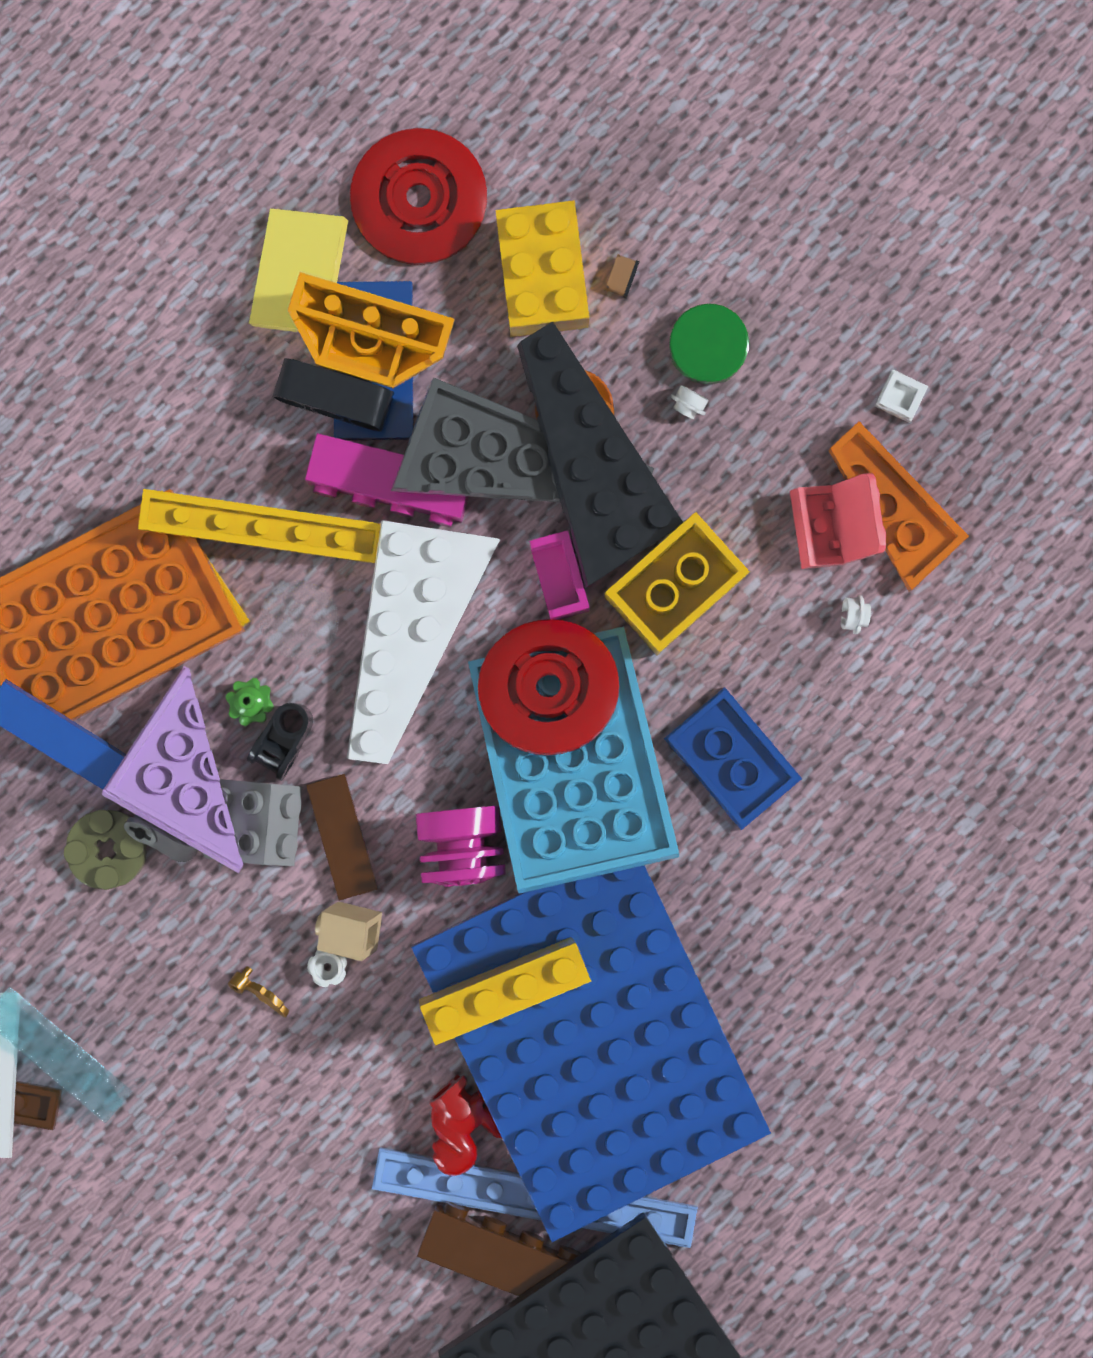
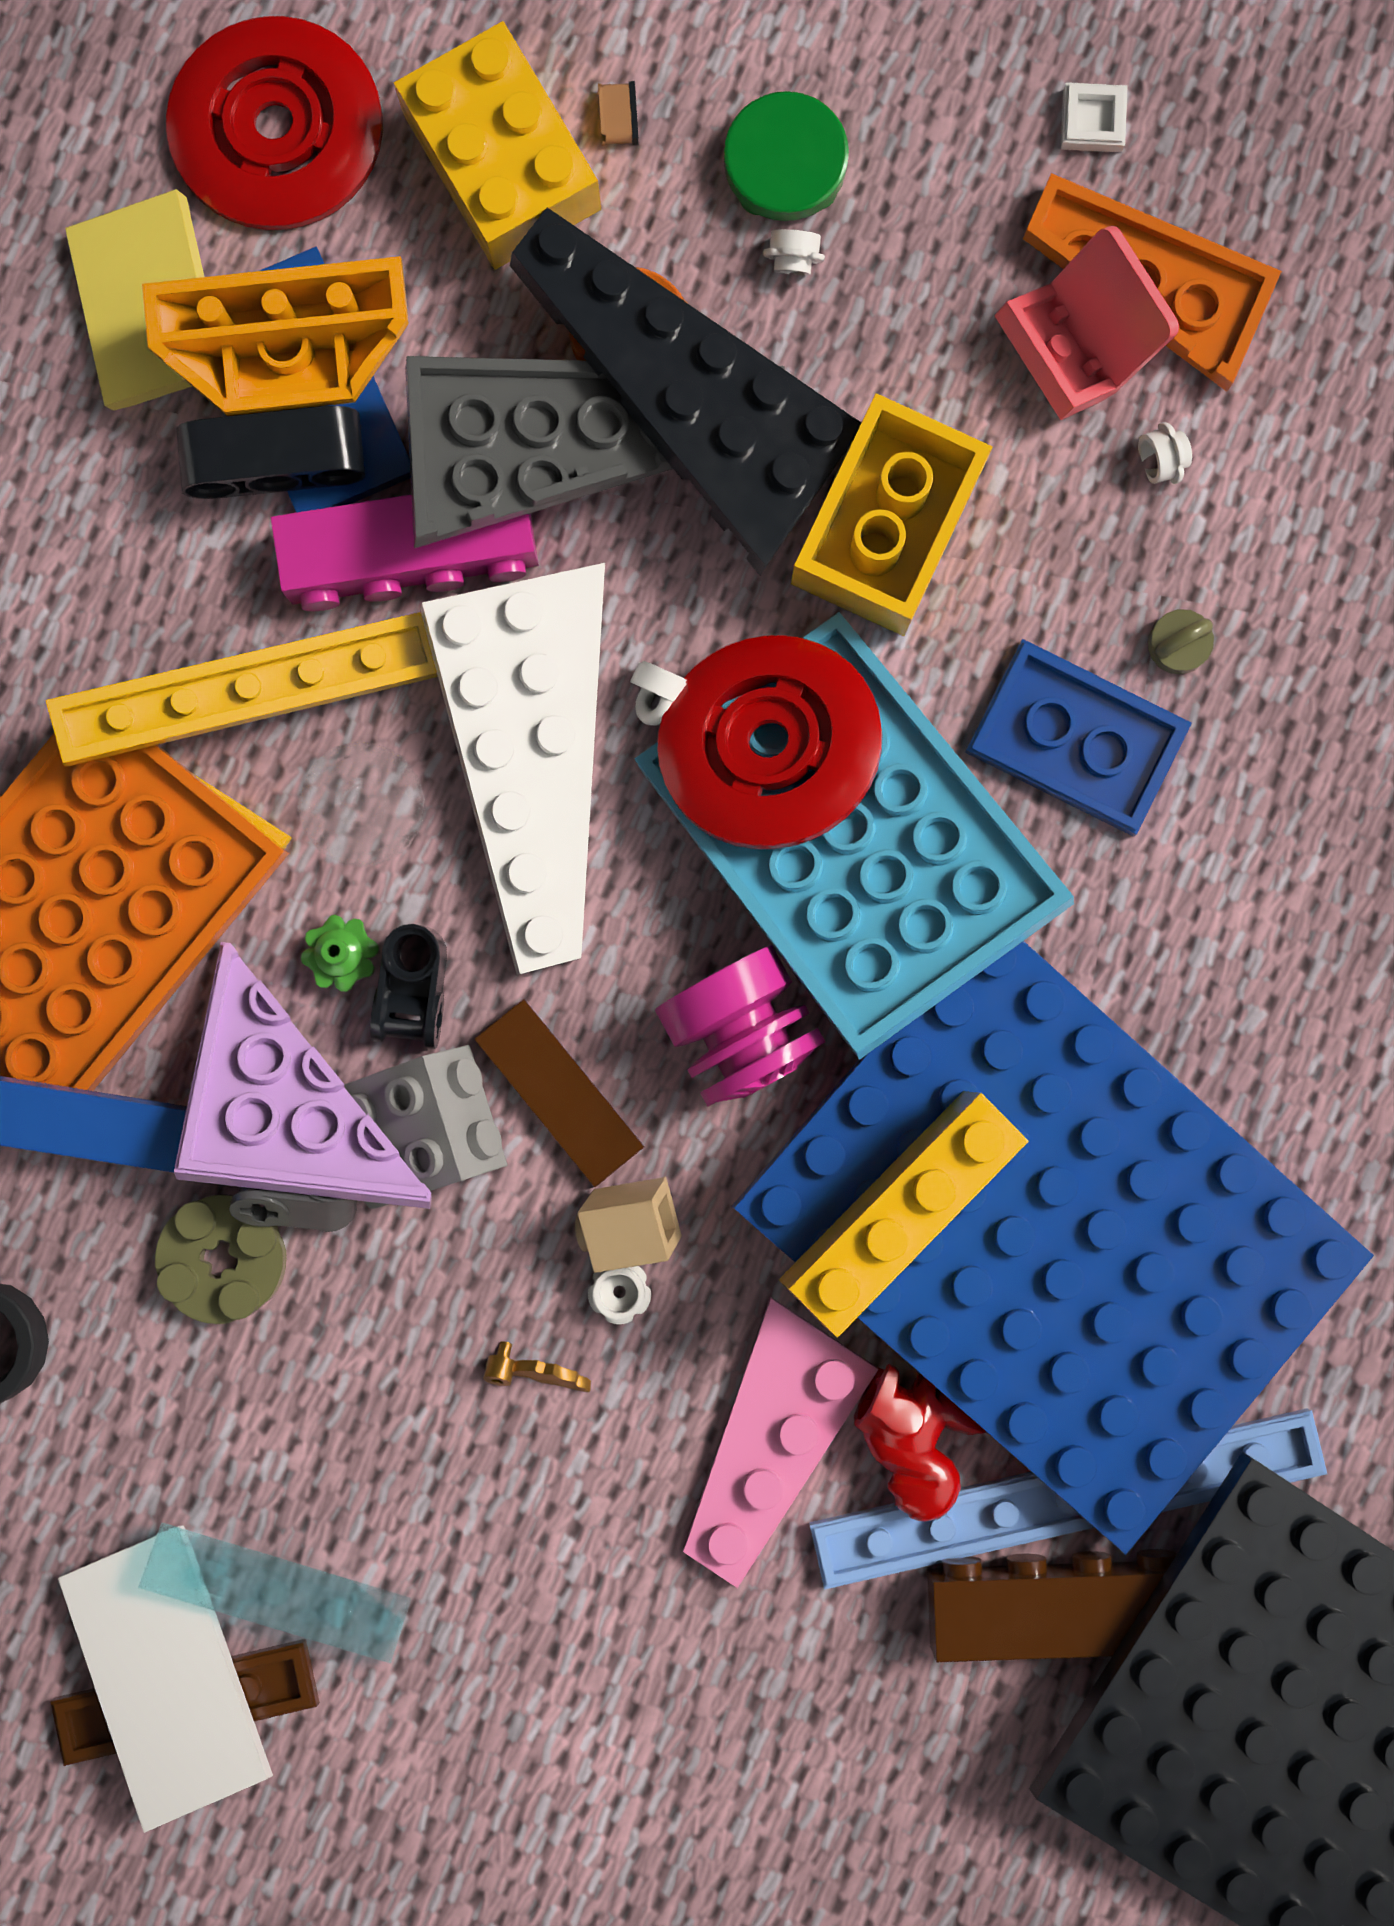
camera: 20 degrees left, 0 degrees up
(384, 1086) = (779, 1427): none -> bright pink wing
(501, 623) = (655, 681): none -> white tile
(559, 575) = (714, 576): dark pink panel -> none
(817, 728) = (1181, 641): none -> olive tile

